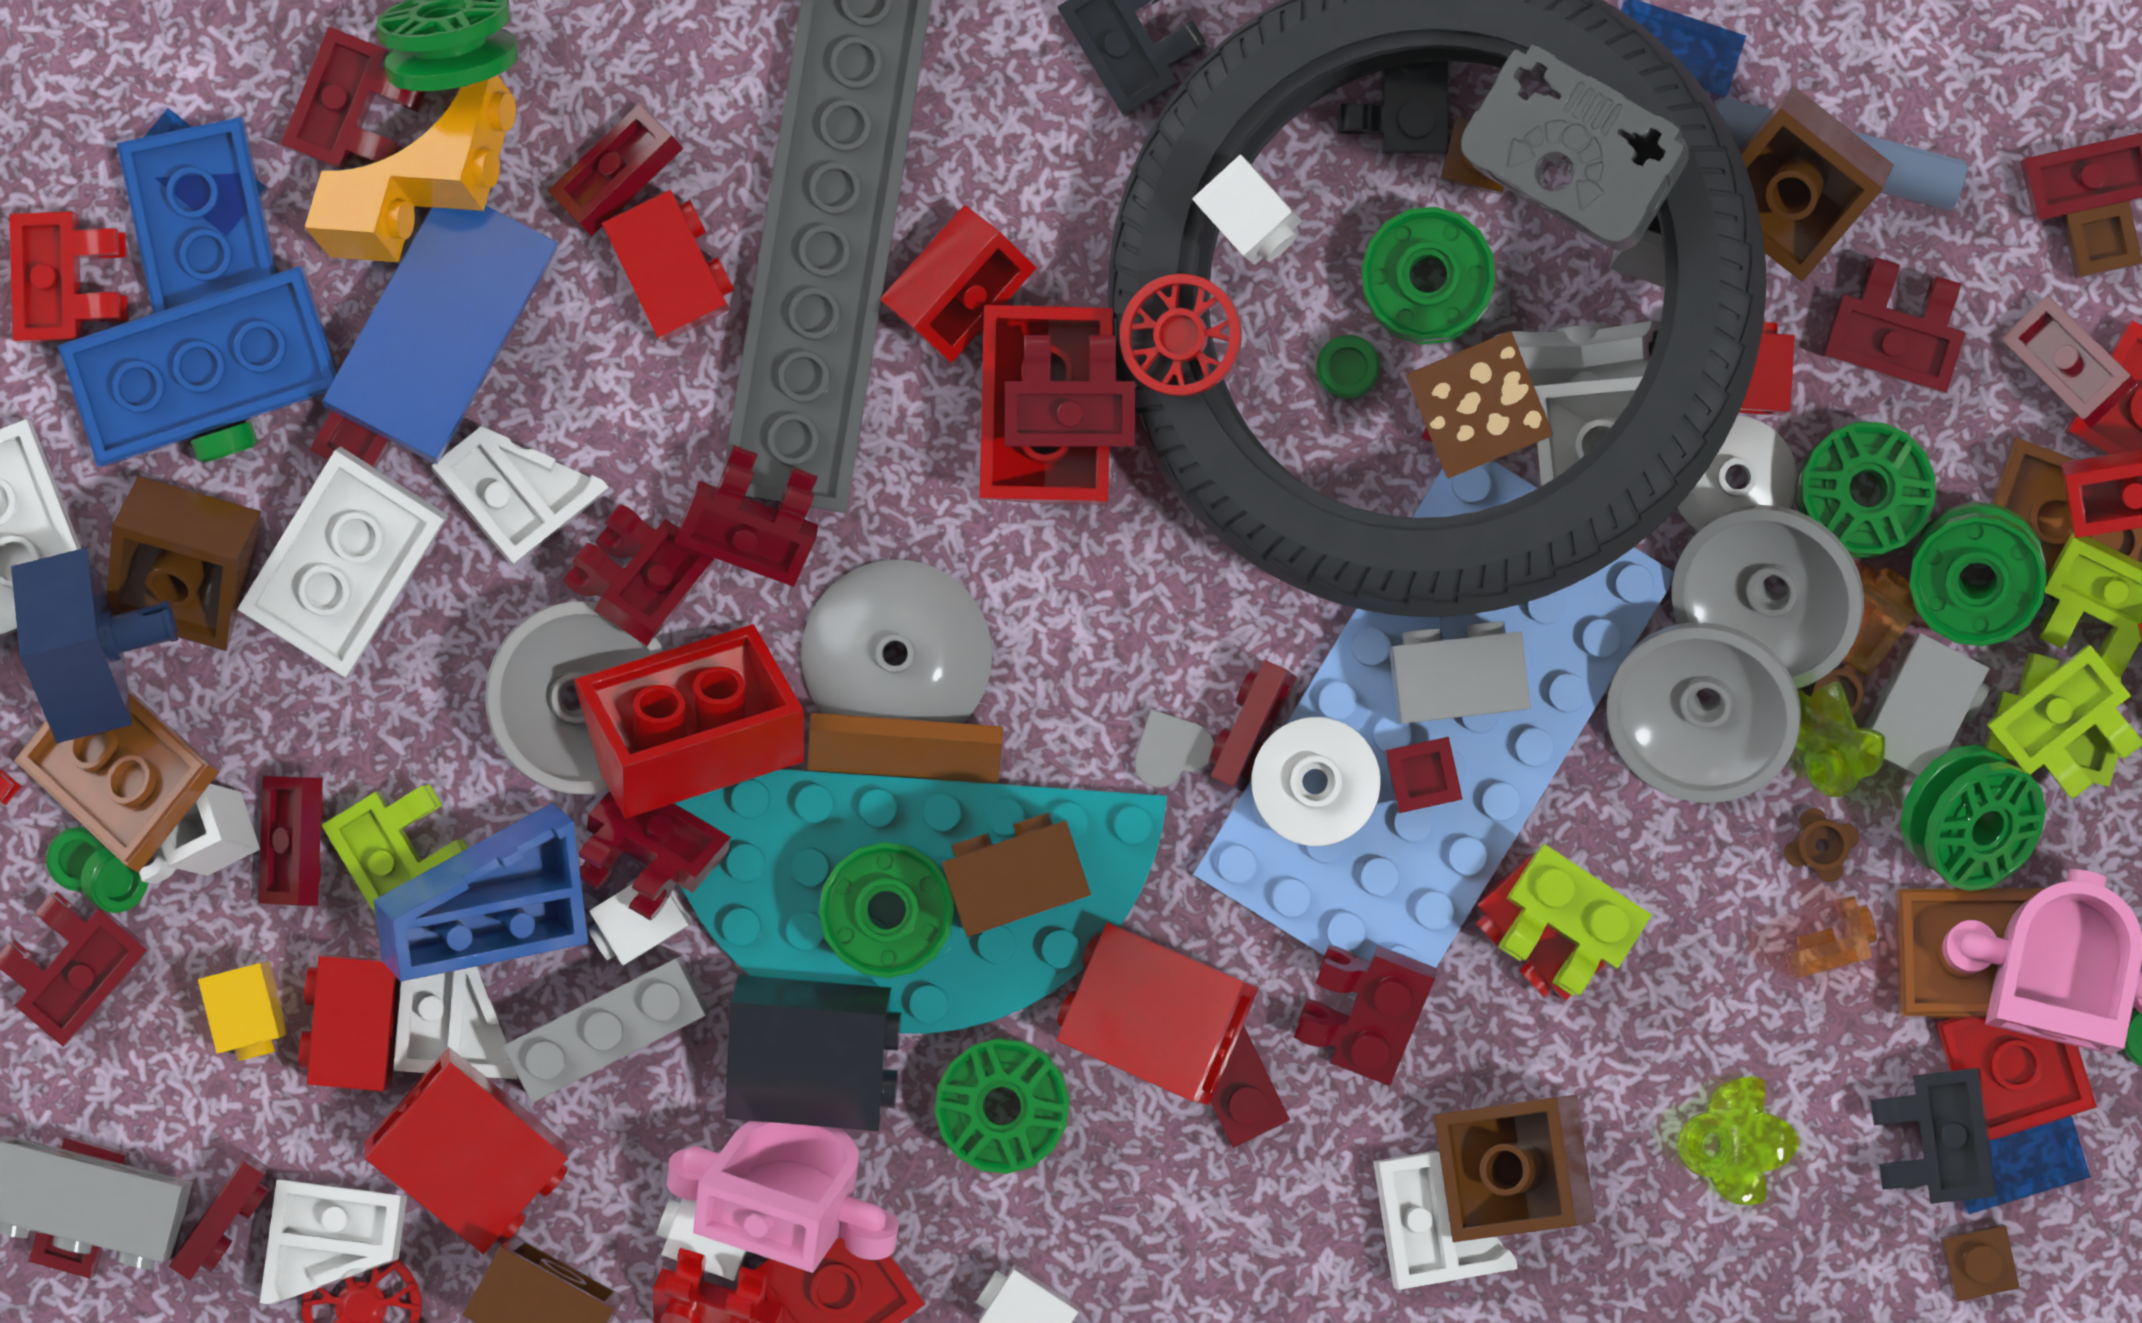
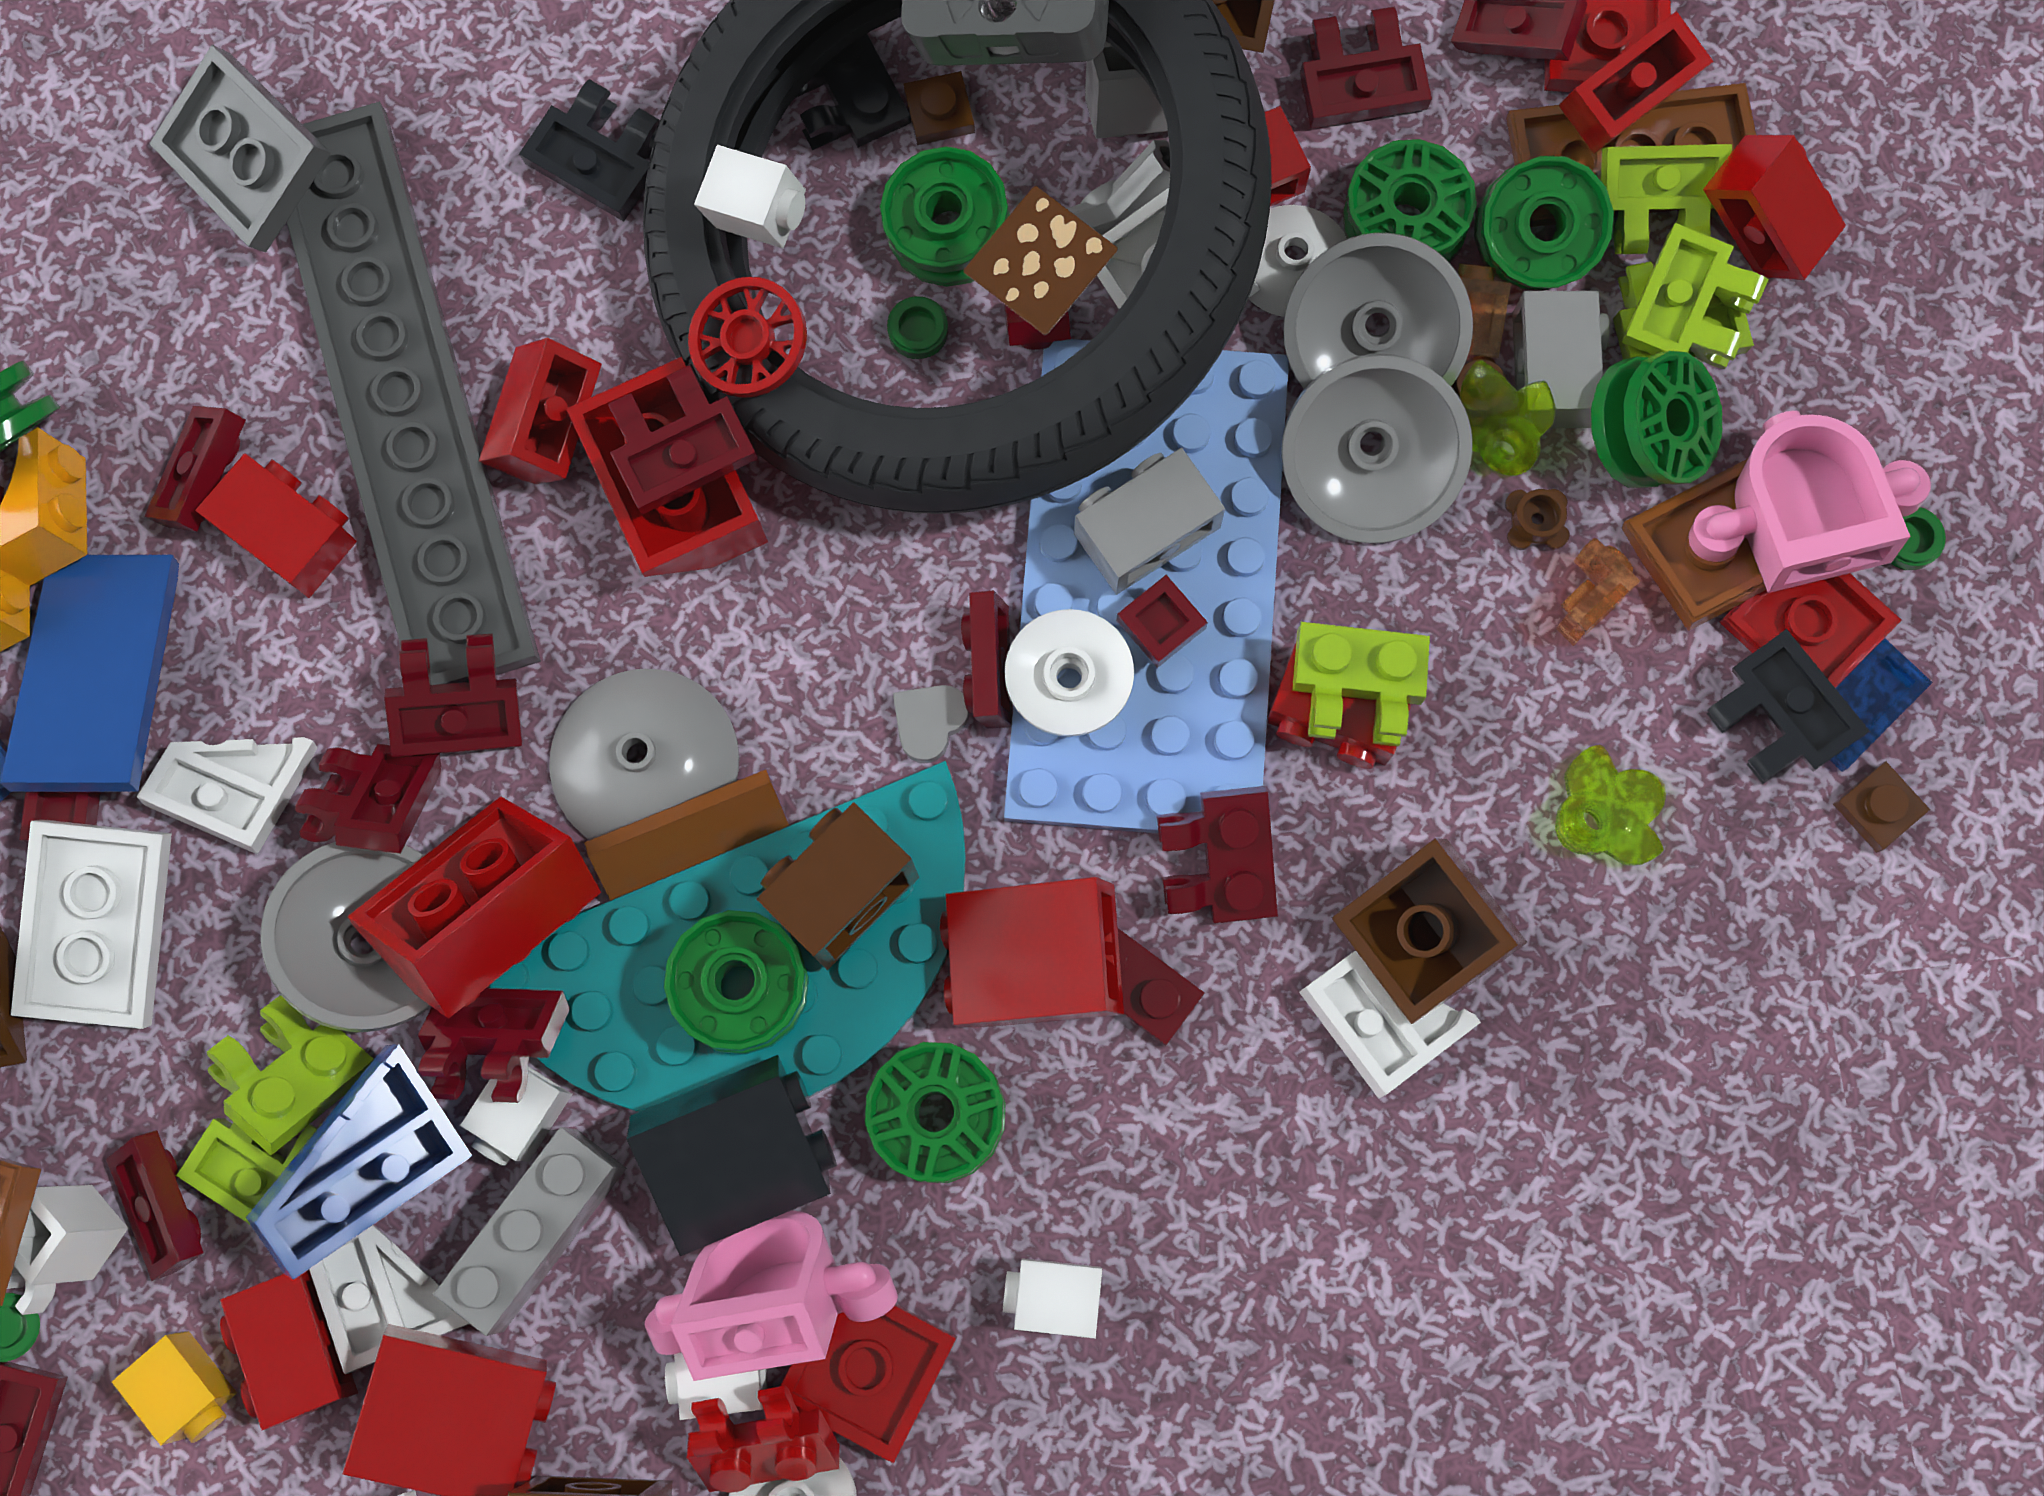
camera: 25 degrees left, 10 degrees down
(460, 801) = (296, 1086): none -> lime plate

